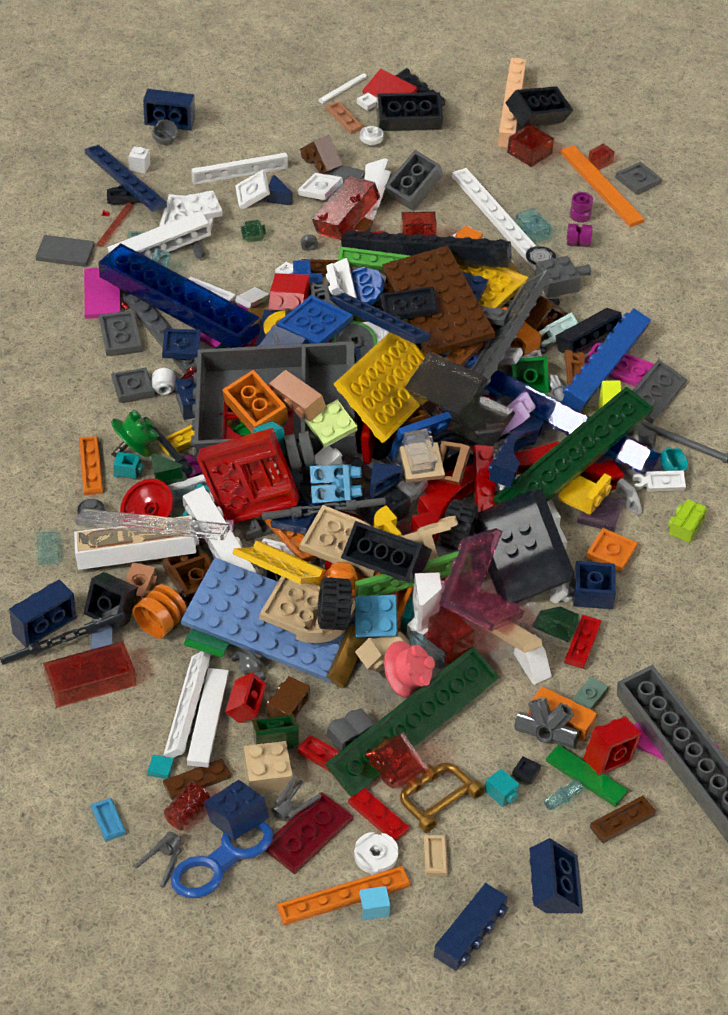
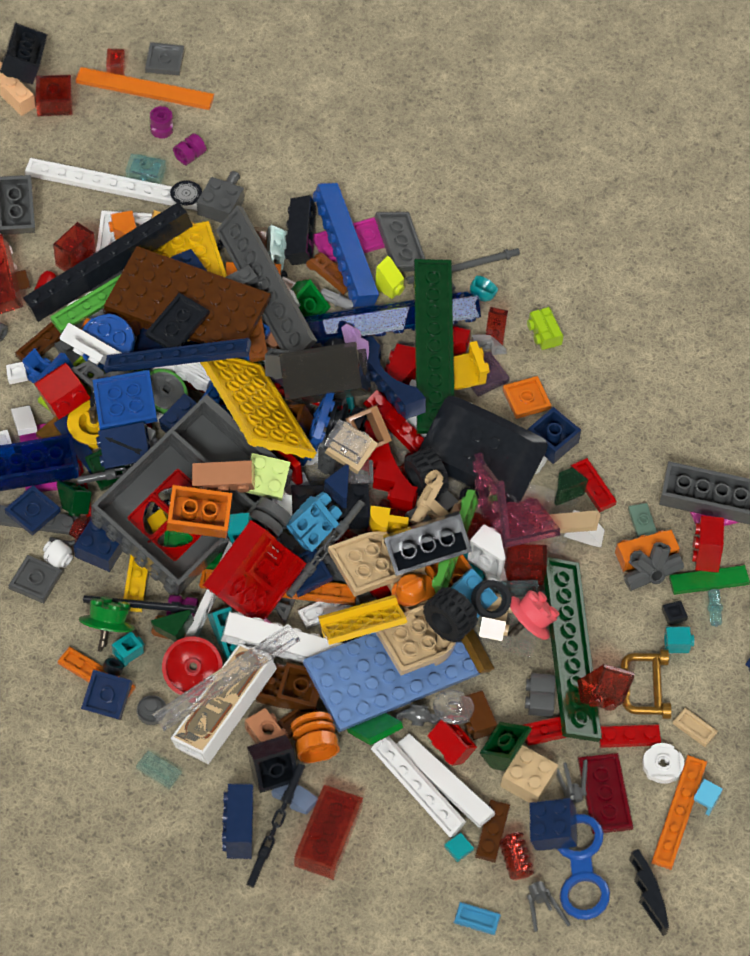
camera: 50 degrees left, 10 degrees up
(76, 477) = (106, 695): none -> dark blue plate
(104, 468) = (113, 666): none -> black tile
(241, 923) = (651, 898): none -> black slope
(270, 682) = (453, 715): none -> clear tile
(368, 622) = (505, 603): none -> black tyre
(643, 481) = (497, 323): none -> clear red tile
(661, 481) = (499, 301): white plate -> none

